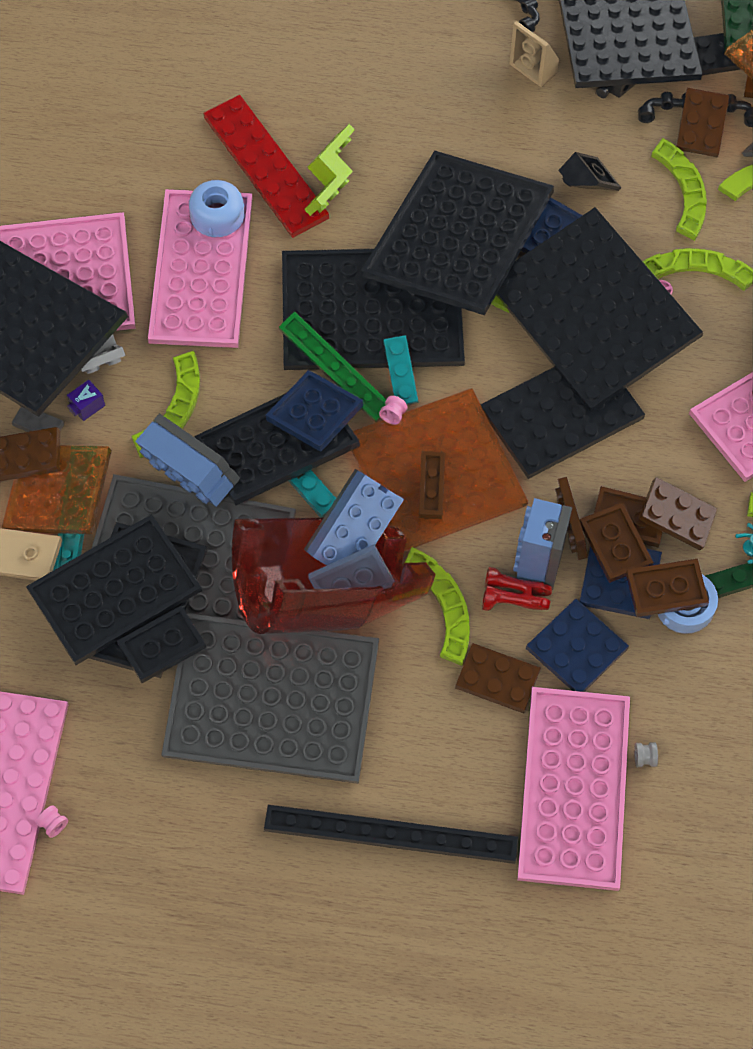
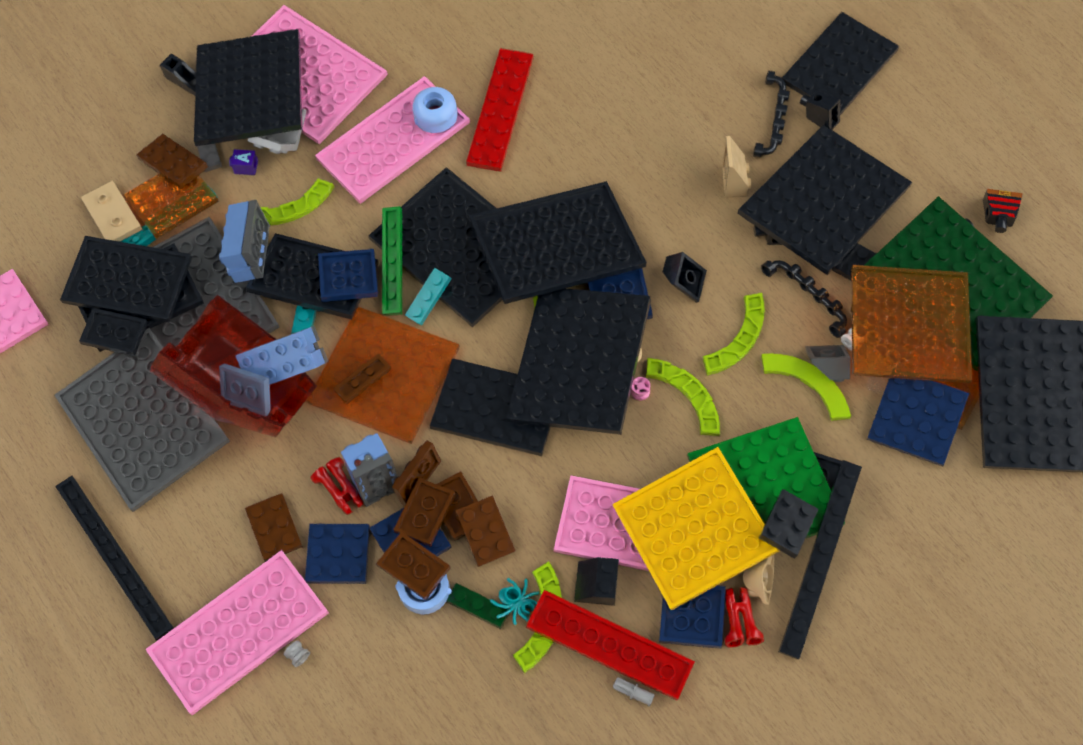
camera: 50 degrees right, 0 degrees up
(330, 170) = (527, 141): lime bracket -> none
(393, 410) = (392, 315): bright pink wheel -> none
(452, 606) = (300, 459): lime tile -> none
(702, 122) = (798, 303): reddish brown plate -> none

